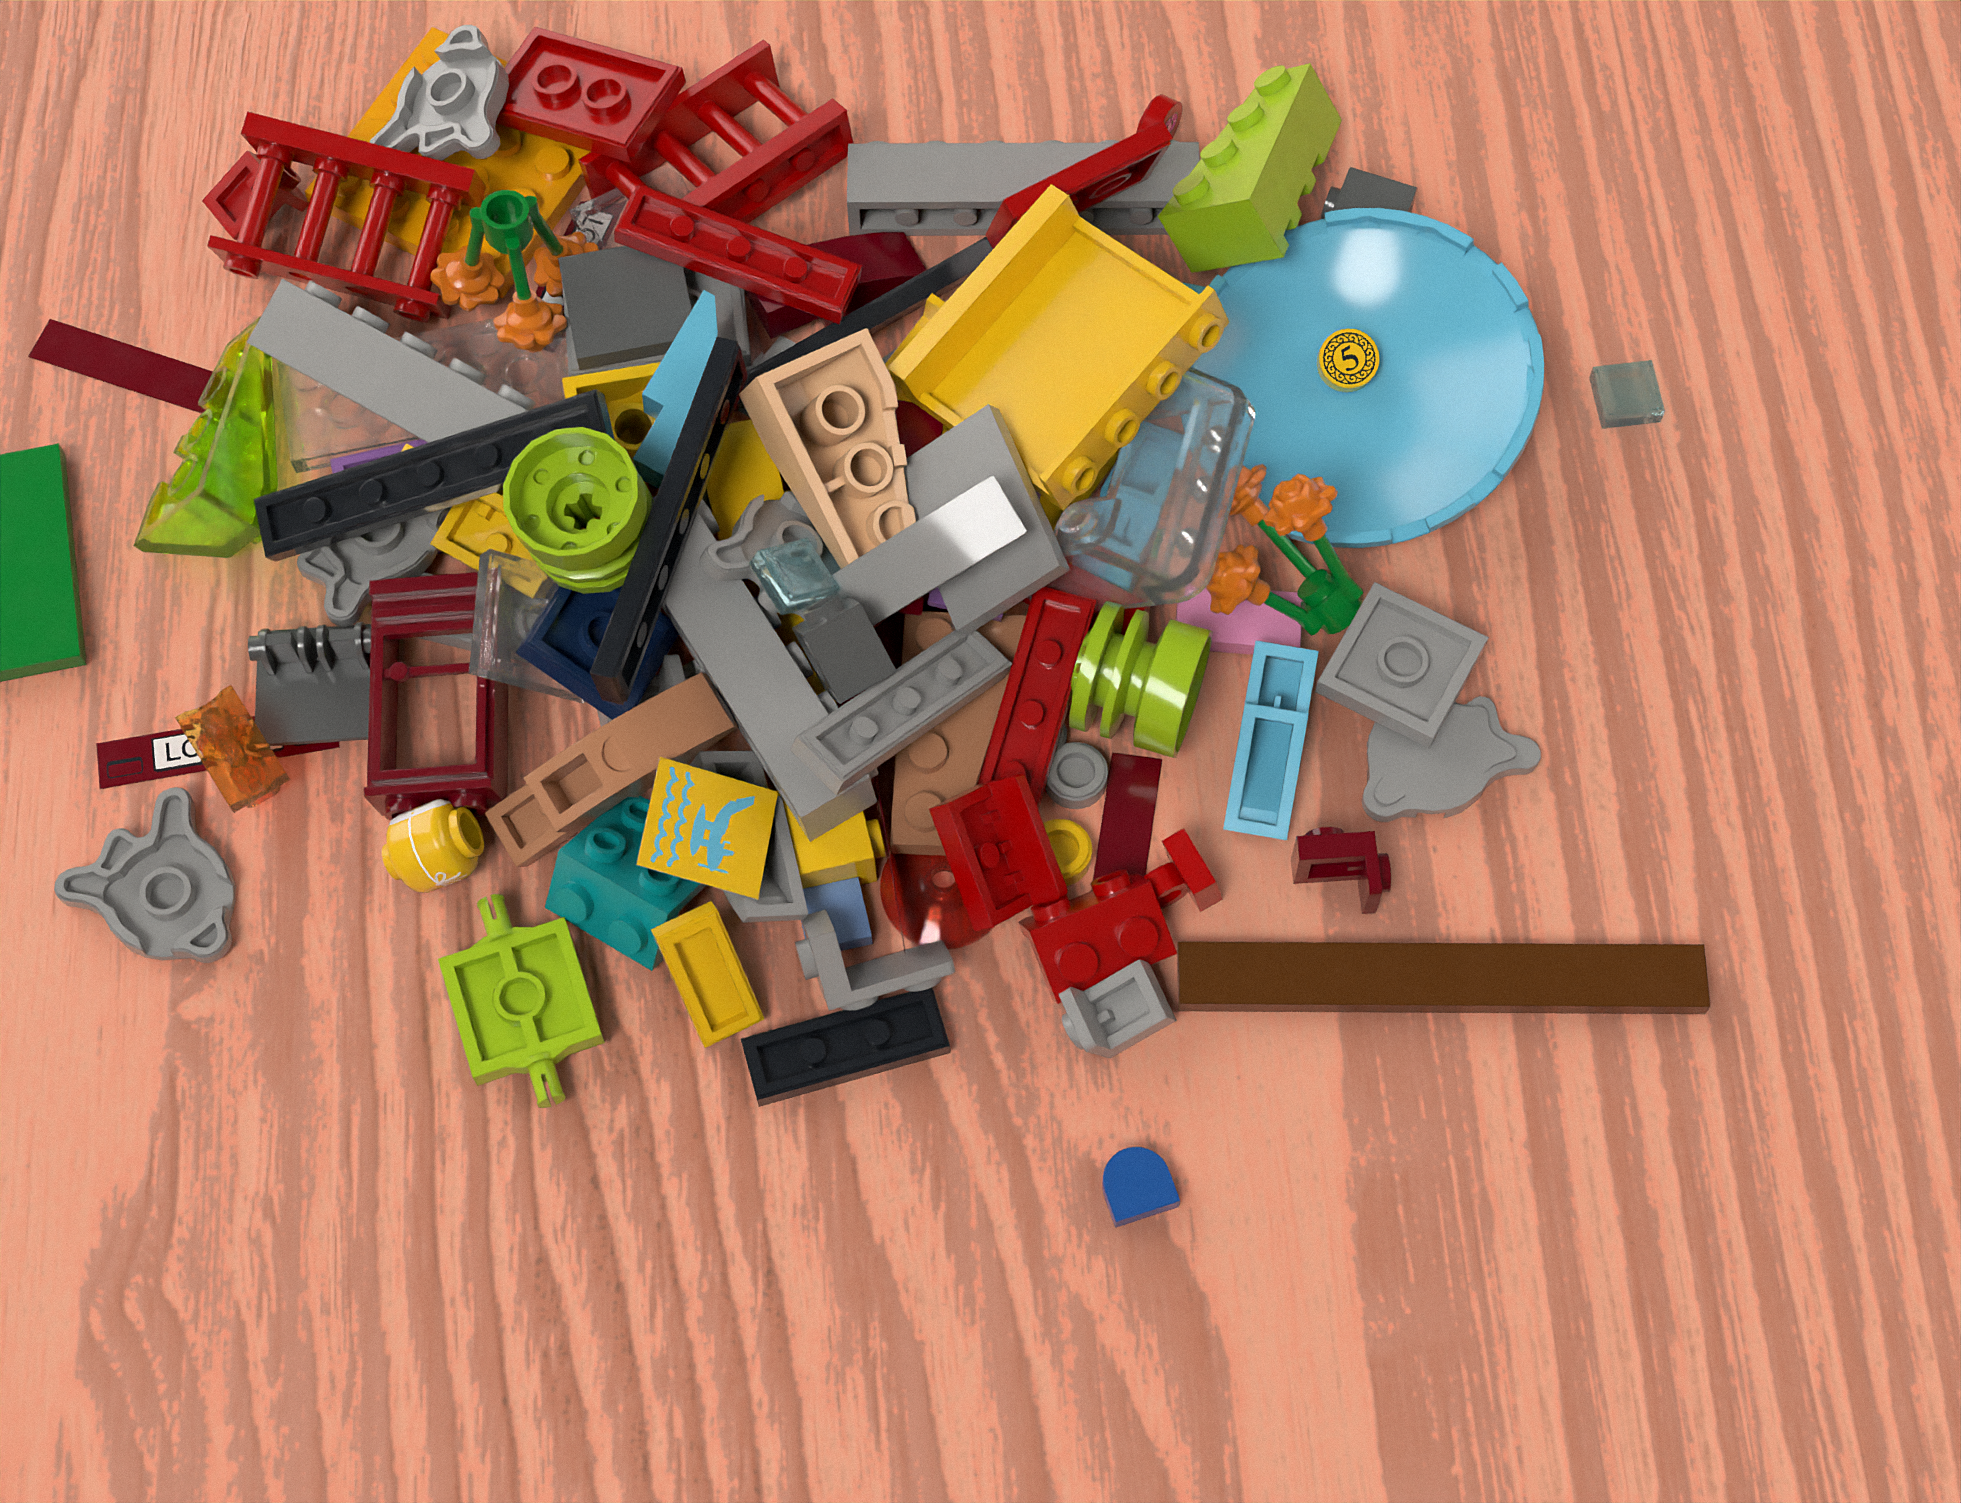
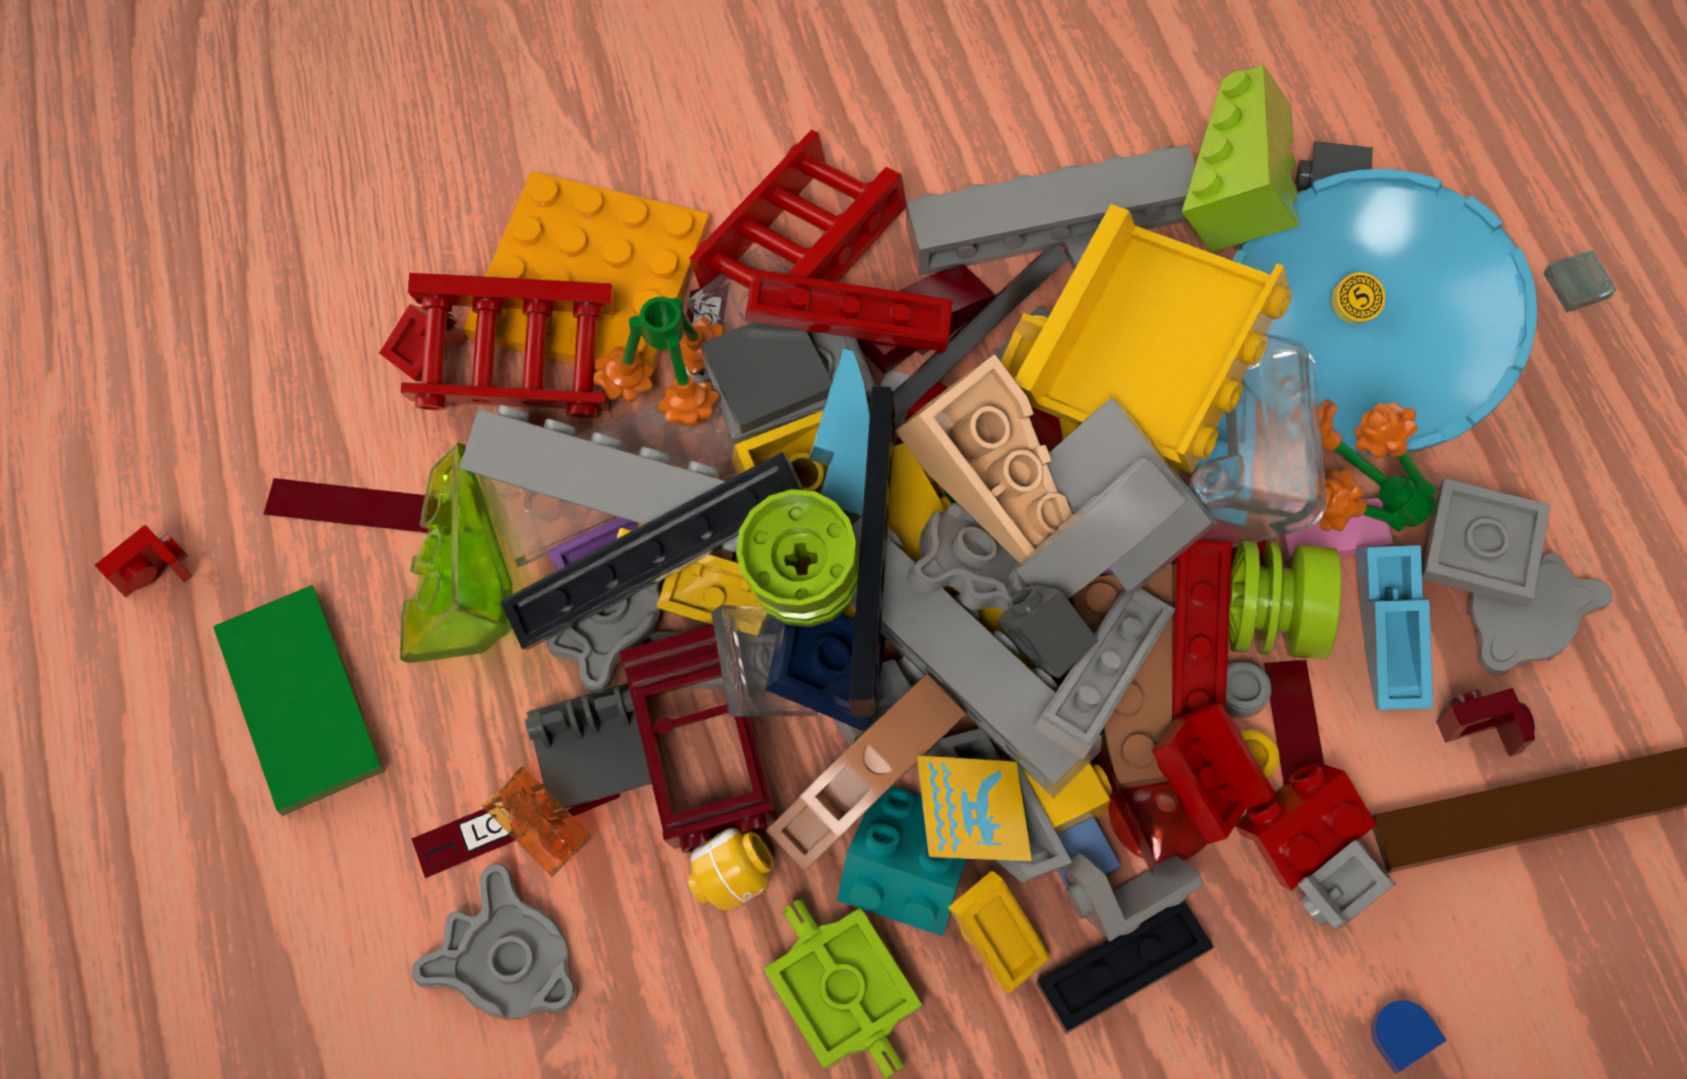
camera: 10 degrees left, 0 degrees up
(451, 102) = (570, 230): light grey tile -> none
(587, 93) = (676, 202): red tile -> none
(793, 575) = (988, 576): clear light blue tile -> none
(1091, 178) = (1123, 196): red tile -> none
(1161, 109) = (1145, 134): red tile -> none
(1183, 875) = (1364, 754): red tile -> none

